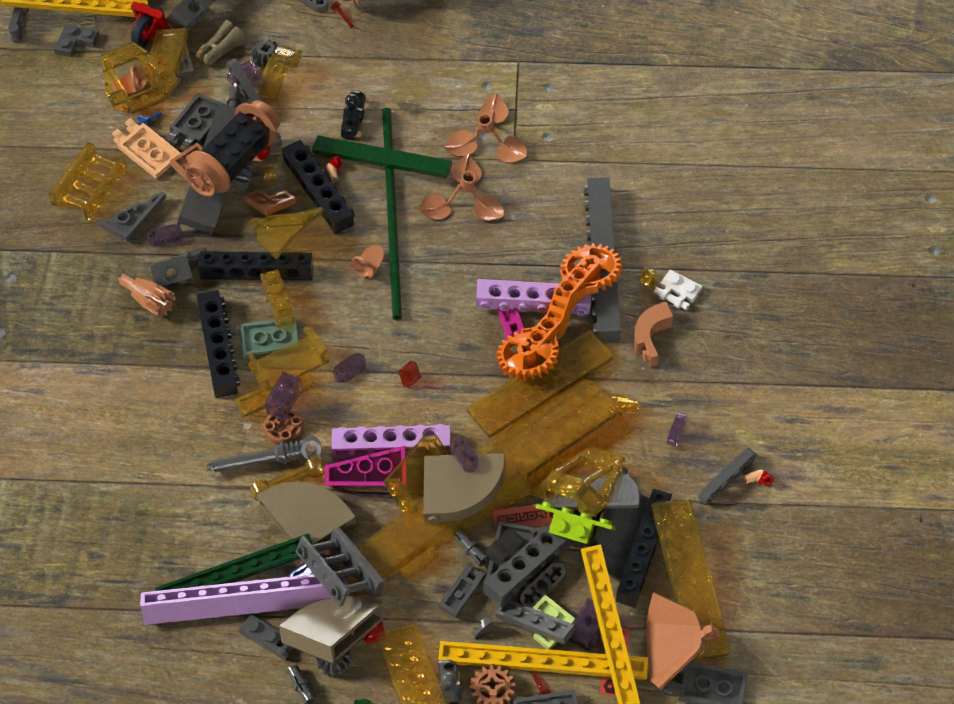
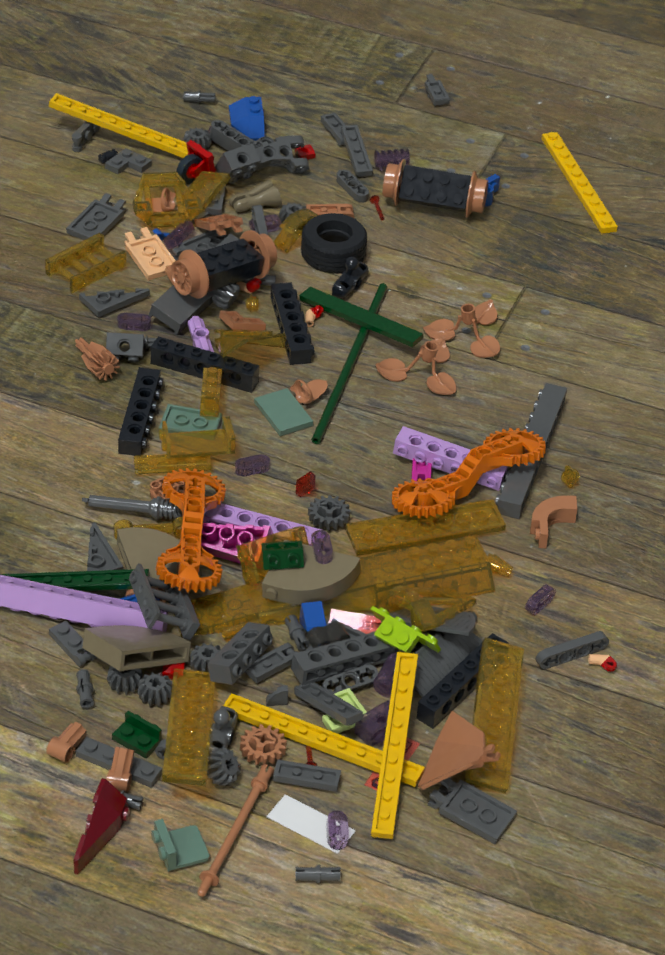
camera: 15 degrees right, 15 degrees down
(52, 38) = (106, 156): none -> black piece
(75, 122) = (97, 218): none -> dark grey tile
(165, 115) = (179, 234): none -> beam
(201, 89) = (220, 222): none -> nougat tile
(237, 233) = (199, 333): none -> lavender piece
(253, 529) = (100, 552): none -> dark grey wing
(283, 396) = (180, 457): brick -> none
(300, 35) = (346, 209): none -> nougat plate
(320, 58) = (331, 240): none -> black tyre
(340, 503) = (189, 550): none -> orange beam
(352, 294) = (283, 412): none -> sand green tile
(367, 669) = (155, 689): none -> dark grey gear
(402, 603) = (202, 655): none -> dark grey gear
(431, 476) = (282, 555): none -> dark green bracket
(432, 595) = (239, 653): none -> dark grey brick
(446, 401) = (329, 512): none -> dark grey gear
(482, 530) = (312, 615): none -> blue slope
(575, 569) = (384, 679): none -> clear purple piece
(680, 286) = (594, 495): white plate -> none

